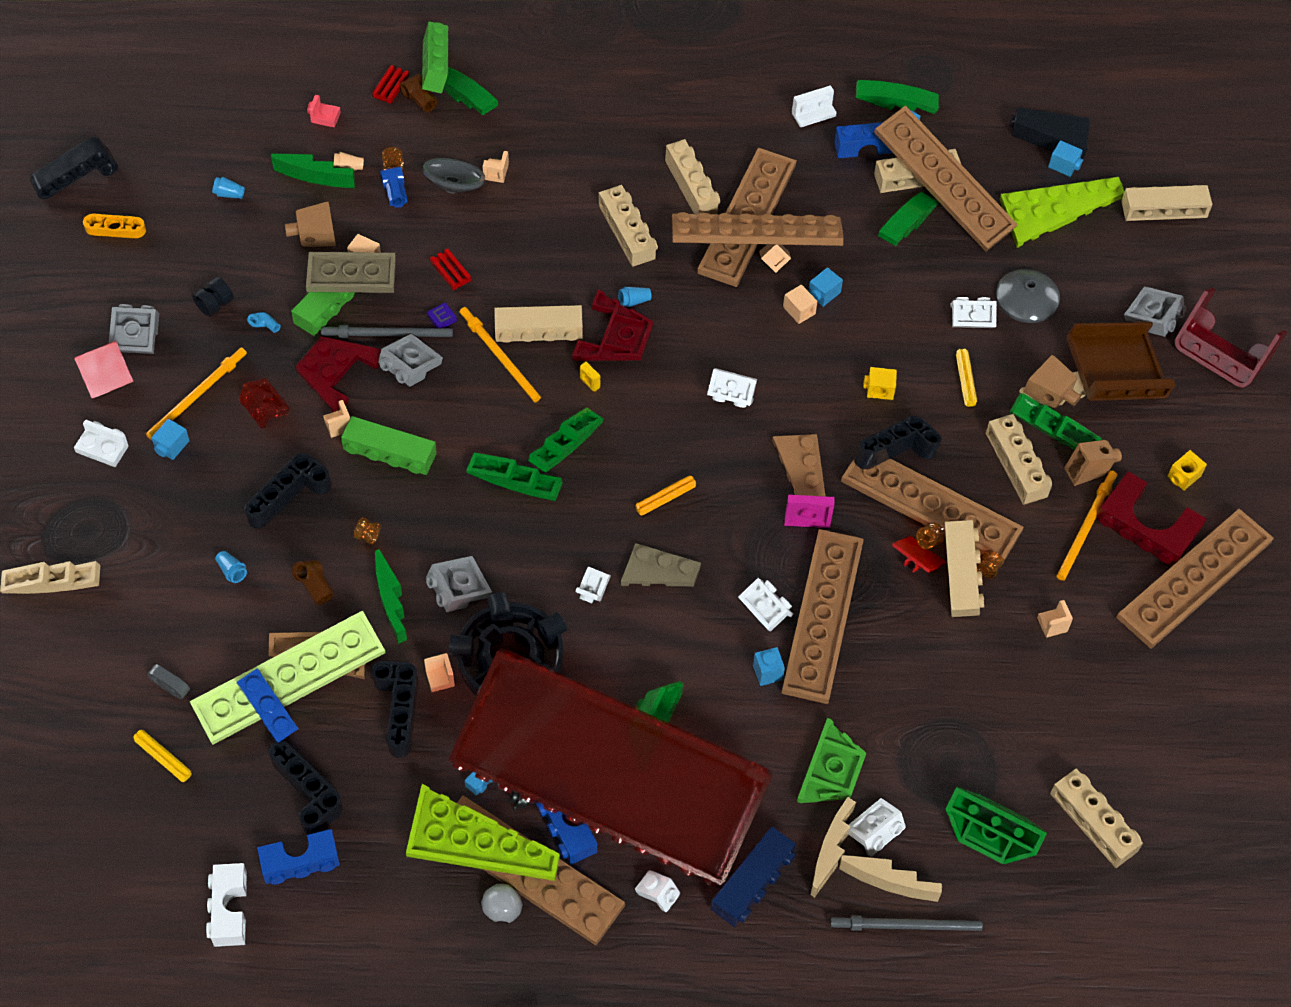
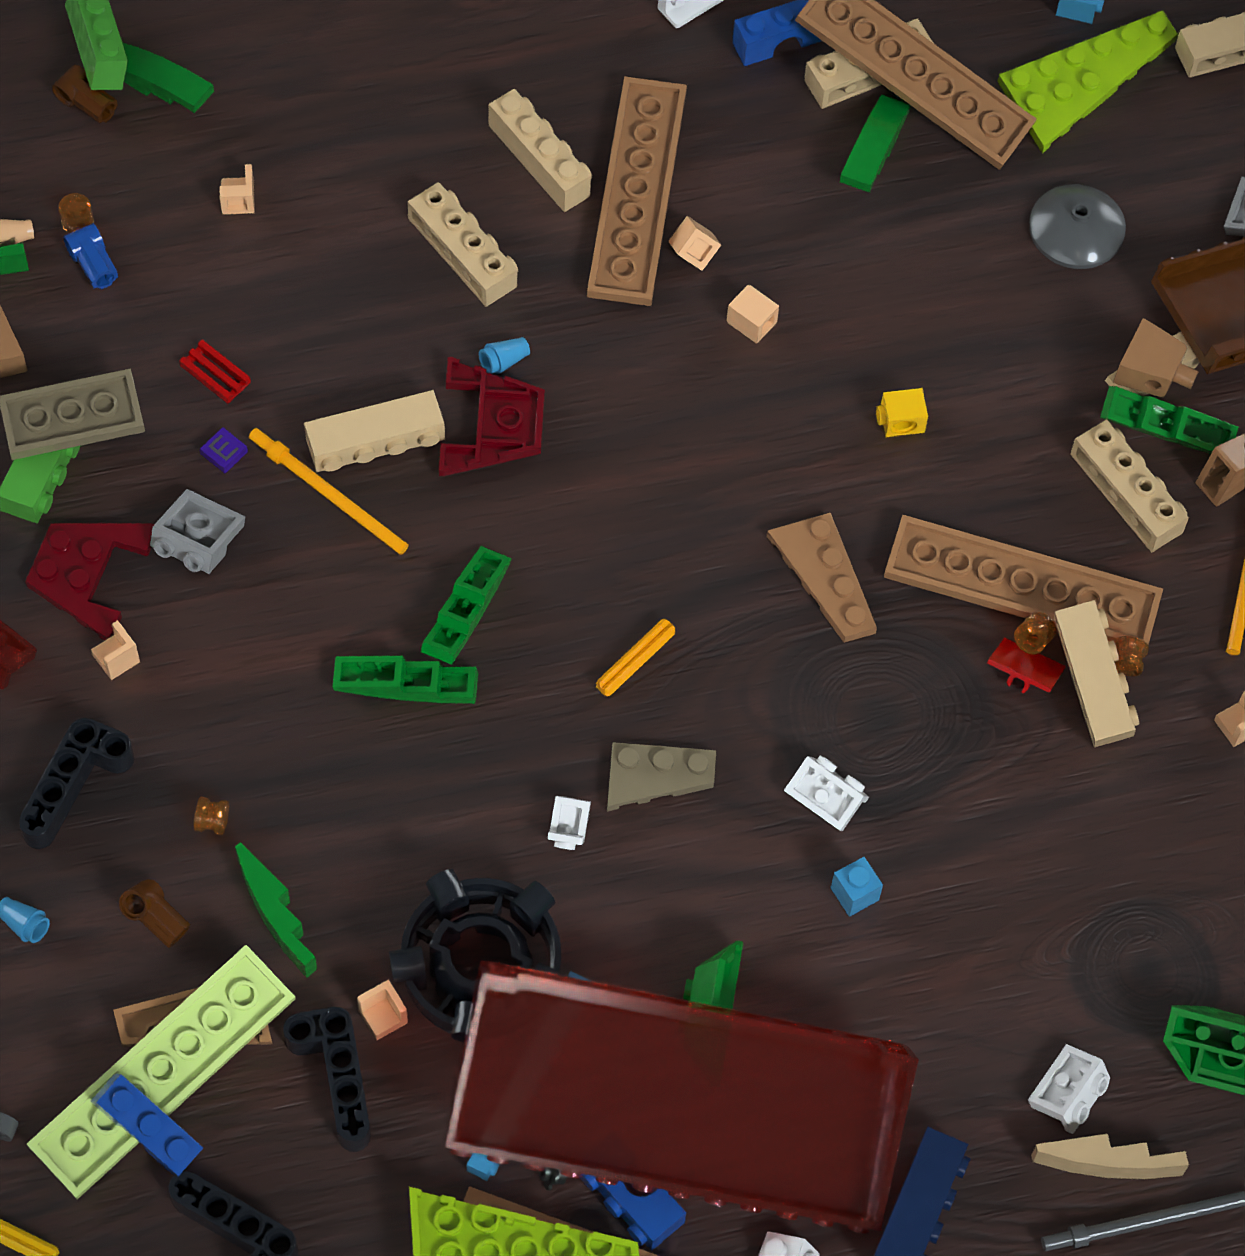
camera: 15 degrees left, 5 degrees up
(344, 331) = (83, 507): dark grey bar -> none
(363, 244) = (75, 365): light nougat panel -> none
(387, 83) = (40, 67): red tile -> none
(388, 445) = (204, 675): bright green brick -> none
(453, 175) = (179, 219): dark grey dish -> none
(457, 583) = (370, 866): light grey plate -> none
(589, 376) = (474, 497): yellow tile -> none
(732, 387) = (690, 469): white bracket -> none
(757, 229) = (660, 211): medium nougat plate -> none
(809, 511) = (853, 637): dark pink tile -> none
(822, 617) = (913, 791): medium nougat plate -> none
(825, 286) = (782, 278): dark azure brick -> none
(831, 852) = (1016, 1143): tan slope -> none
(832, 768) = (986, 1015): bright green wing -> none
(906, 434) = (965, 482): black beam -> none
(966, 377) = (1022, 375): yellow axle -> none
(973, 313) = (1008, 273): white bracket -> none

